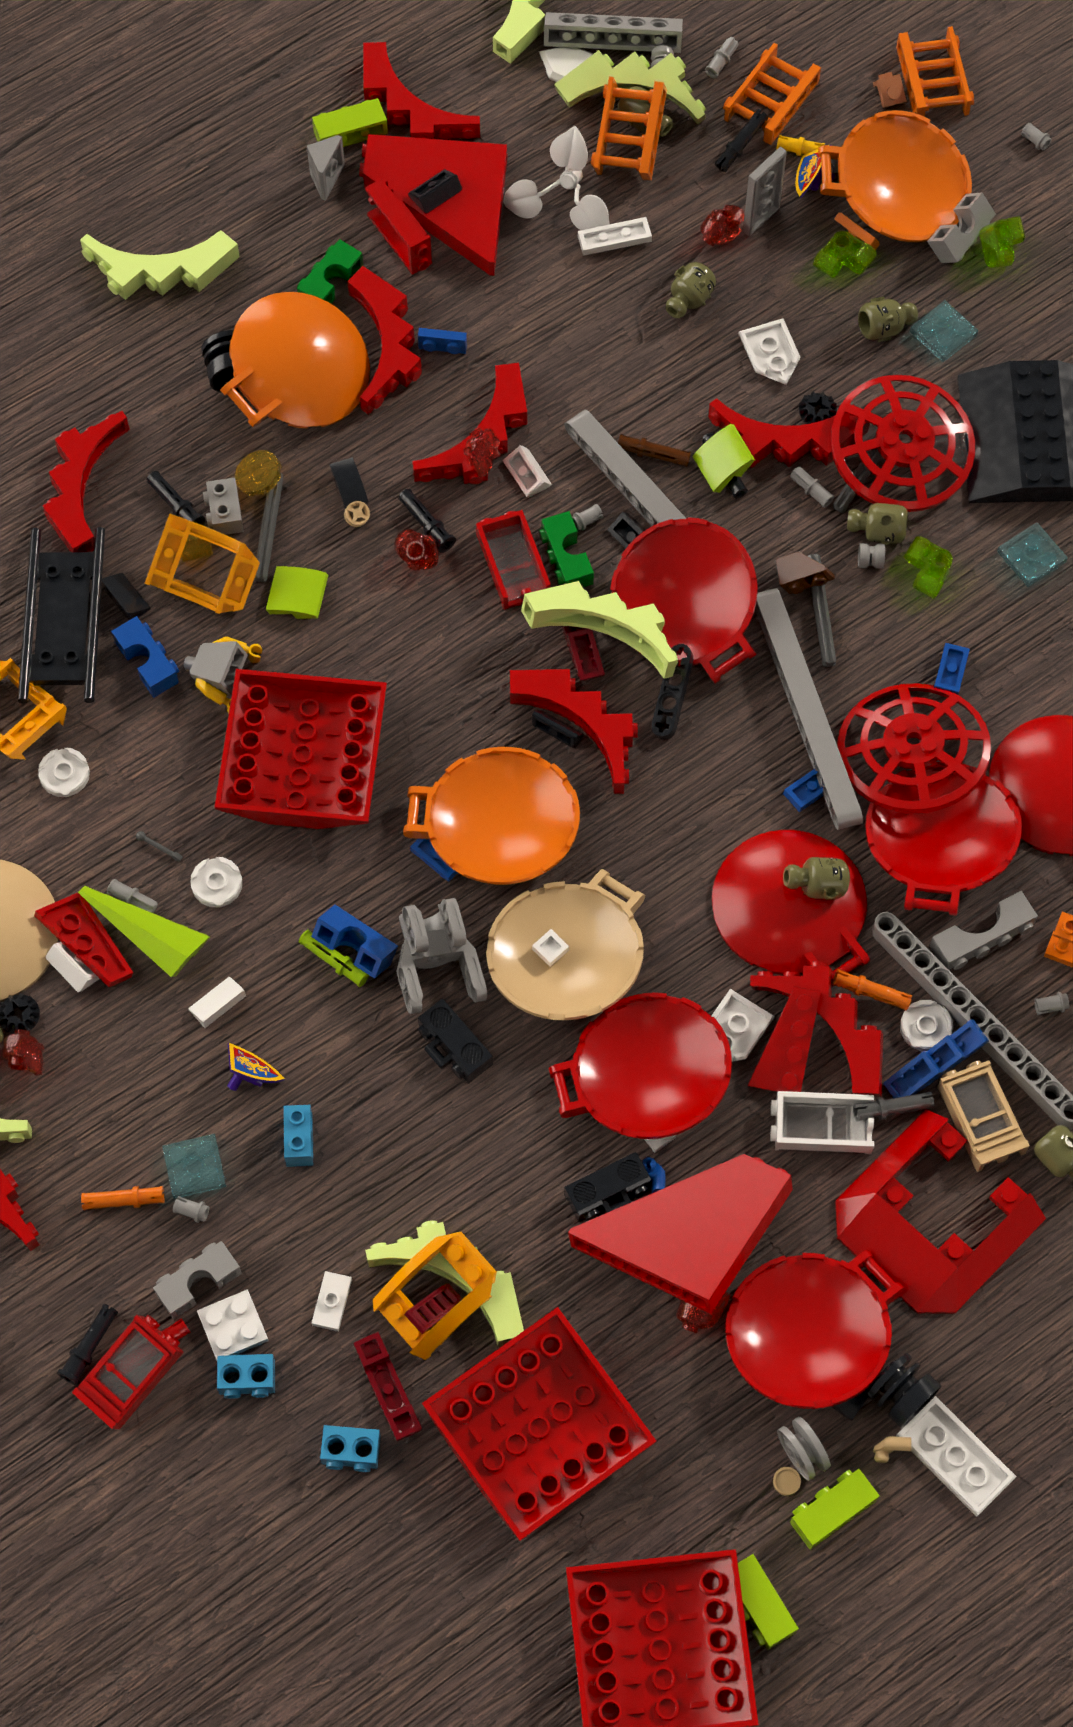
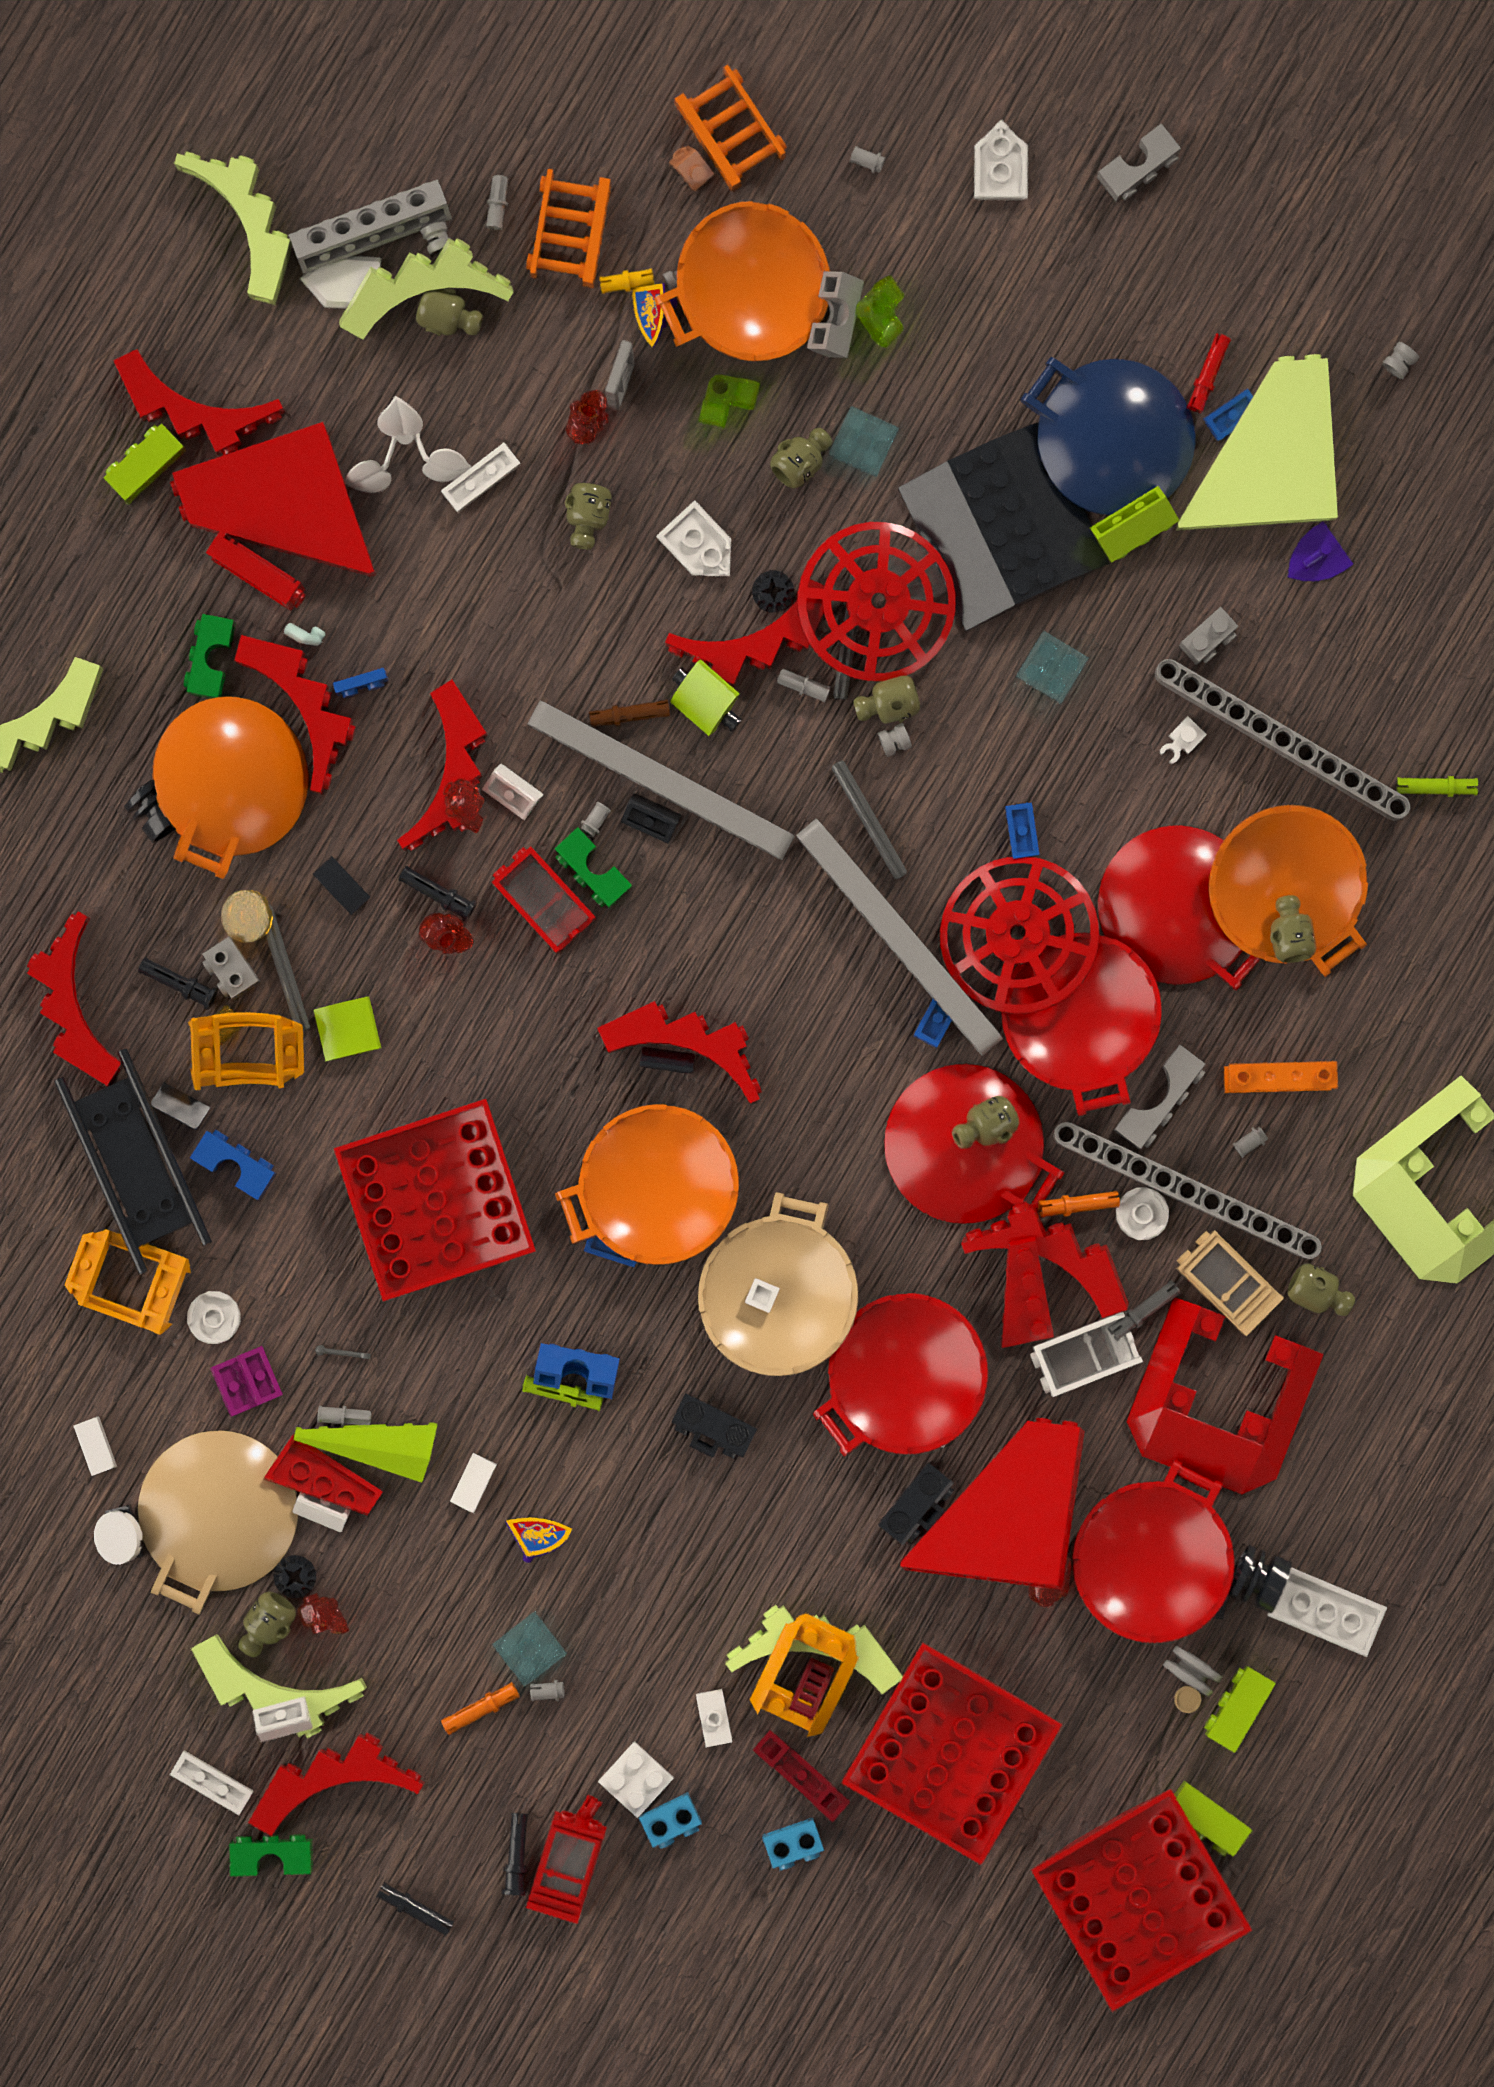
camera: 20 degrees left, 20 degrees up
(63, 834) = (246, 1381): none -> magenta slope
(214, 1264) = (595, 1732): light grey arch -> none
(216, 667) = (311, 1146): light grey torso -> none
(216, 882) = (415, 1364): white tile -> none
(298, 1135) = (612, 1581): dark azure brick -> none
(326, 163) = (144, 529): light grey slope -> none
(359, 510) = (370, 923): tan wheel -> none
(415, 294) = (303, 637): none -> light aqua arm
(433, 944) = (646, 1338): light grey piece -> none
(436, 190) = (275, 513): black slope -> none
(583, 652) = (643, 952): dark red slope -> none
(606, 614) = (666, 928): yellowish green arch -> none
(647, 142) = (468, 357): orange fence -> none
(656, 1173) = (954, 1471): blue arm -> none
(669, 691) = (766, 977): black beam -> none
(698, 583) = (734, 873): red dish -> none
(735, 148) = (560, 316): black pin -> none
(742, 1023) = (969, 1290): white tile -> none
(801, 572) = (834, 791): reddish brown slope -> none
(856, 230) = (726, 364): orange plate -> none
(889, 1445) = (1267, 1628): tan arm -> none
(924, 555) = (946, 716): clear neon green piece -> none
(936, 1061) = (1166, 1249): blue slope -> none

